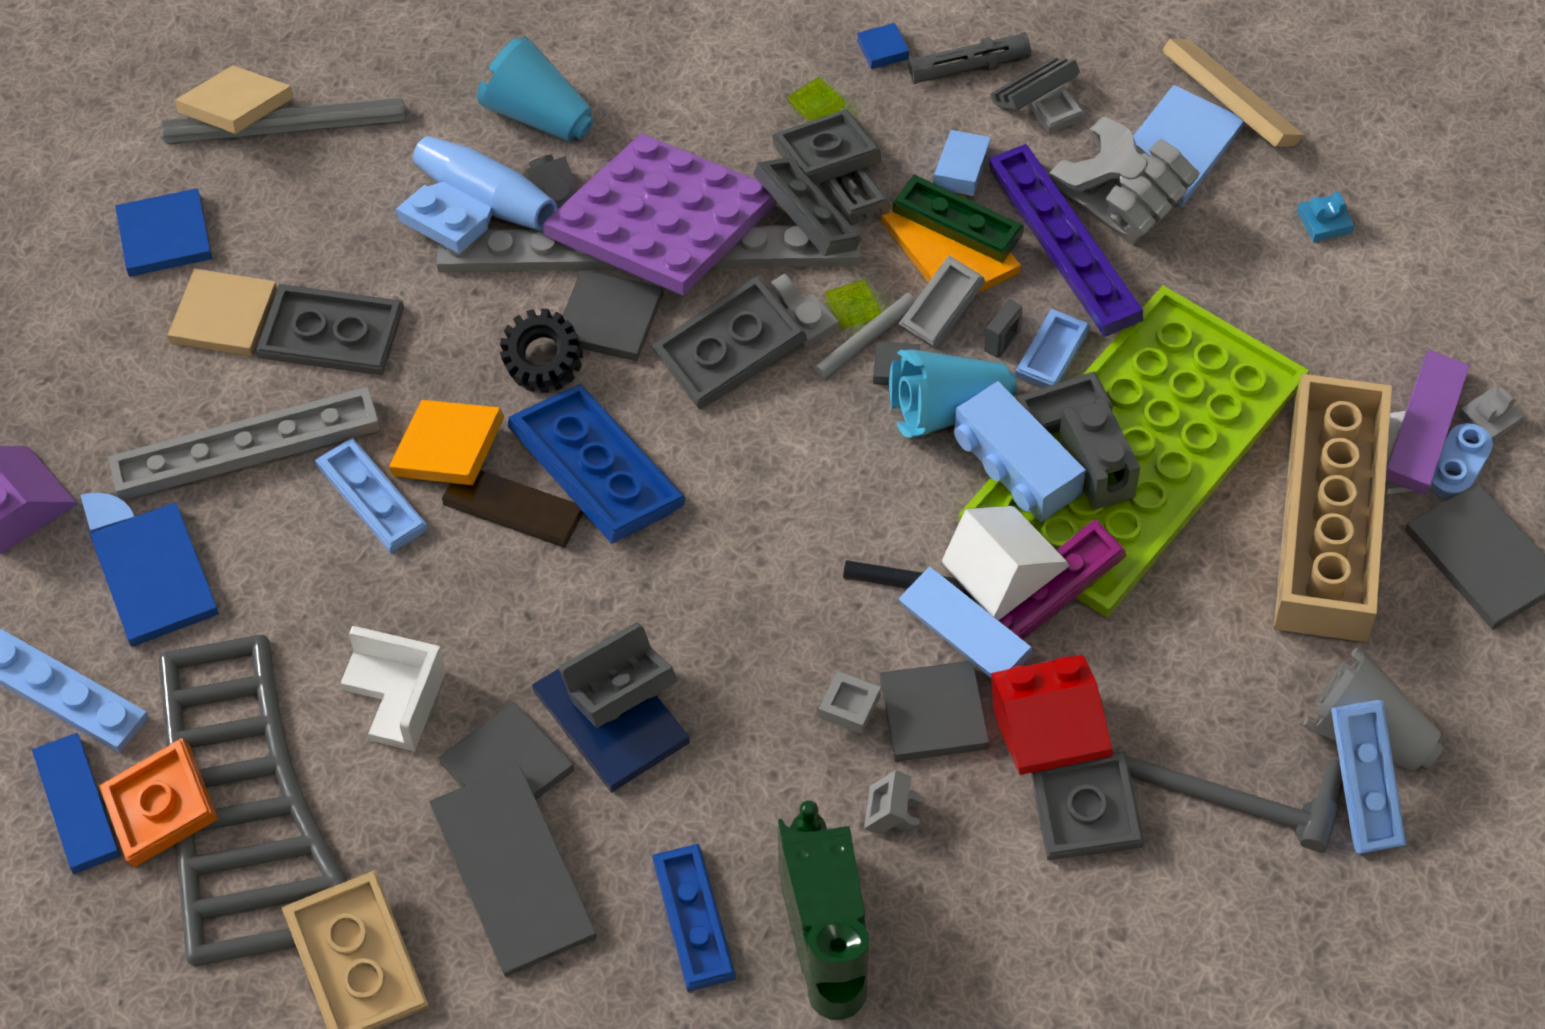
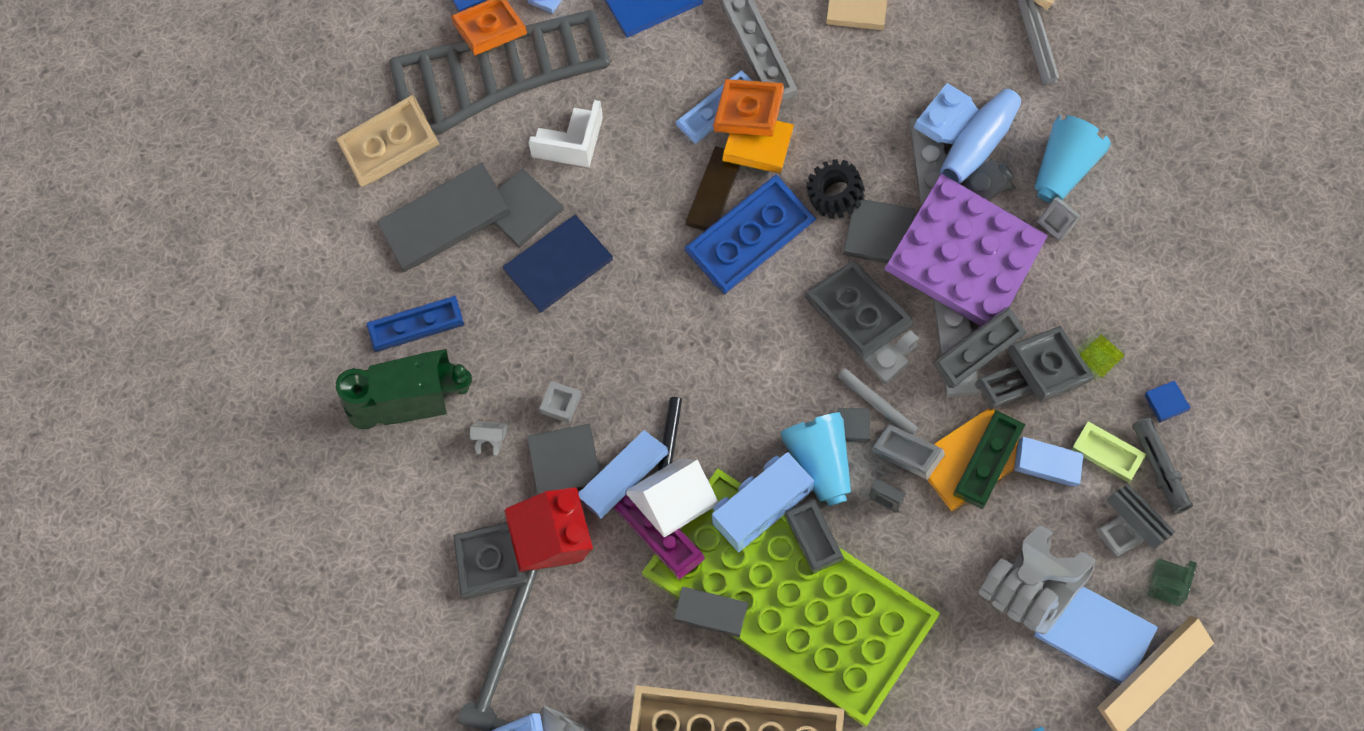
camera: 90 degrees right, 10 degrees up
(330, 329) = (850, 65): dark grey tile -> none
(392, 442) = (748, 107): none -> orange tile
(616, 675) = (571, 257): dark grey bracket -> none
(619, 118) = (1058, 219): none -> light grey tile
(852, 304) = (906, 392): clear neon green tile -> none
(947, 108) = (1109, 452): none -> yellowish green tile
(1052, 349) = (877, 535): light blue tile -> none
(1066, 240) = (975, 538): dark purple plate -> none
(1100, 448) = (762, 557): dark grey brick -> none
(1117, 62) = (1171, 581): none -> clear green panel
(1168, 525) = (711, 611): none -> dark grey tile

